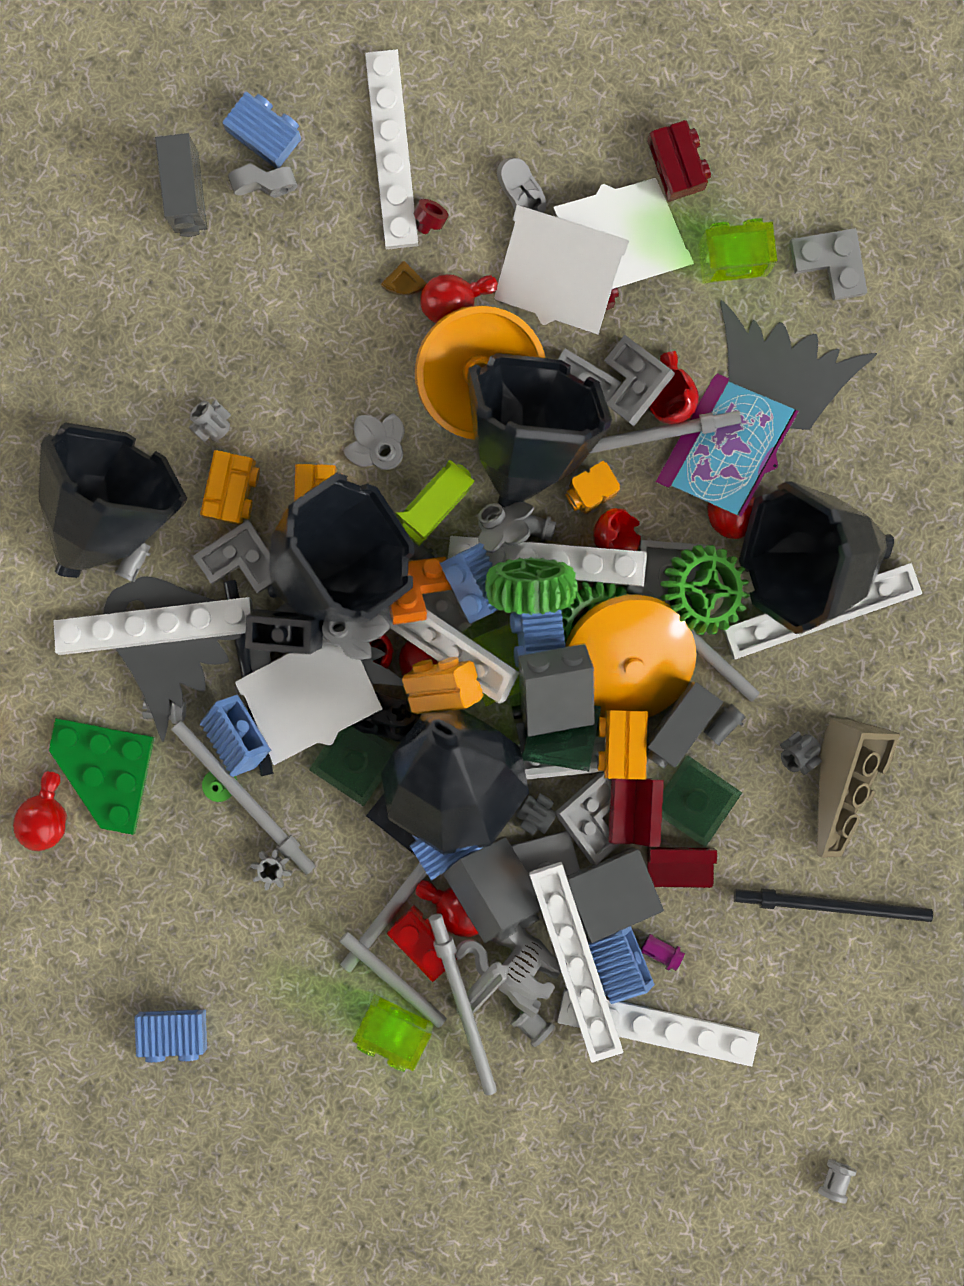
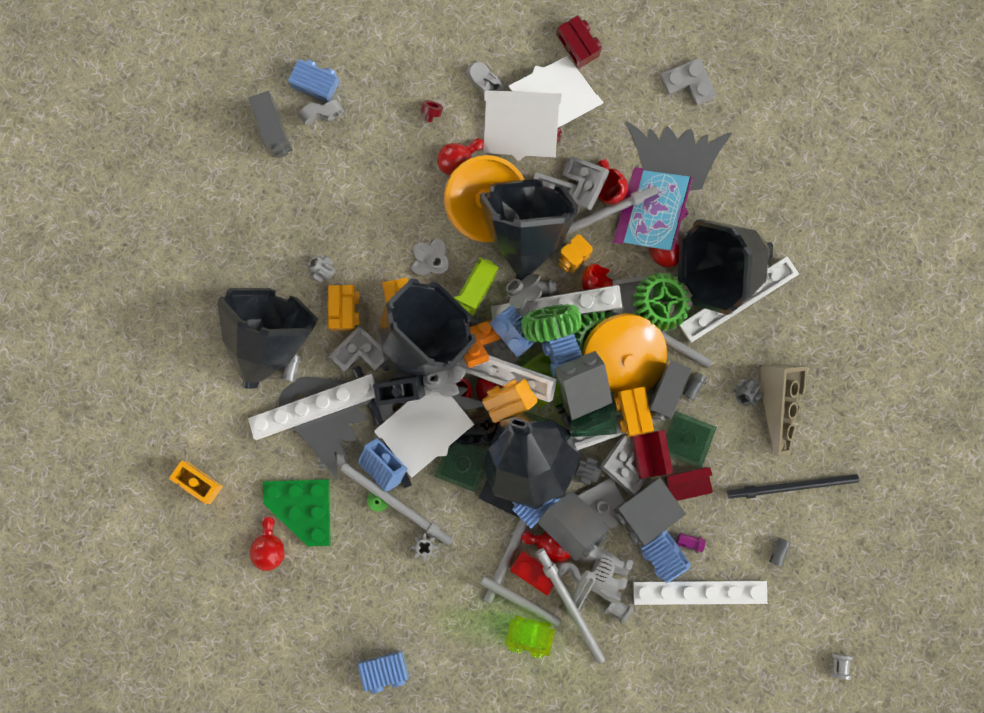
camera: 10 degrees left, 5 degrees down
(391, 149) = (397, 75): white plate -> none
(403, 281) = (424, 154): pearl gold tile -> none
(576, 961) = (638, 560): white plate -> none
(737, 251) = (629, 87): clear neon green brick -> none
(789, 996) = (780, 552): none -> dark grey pin

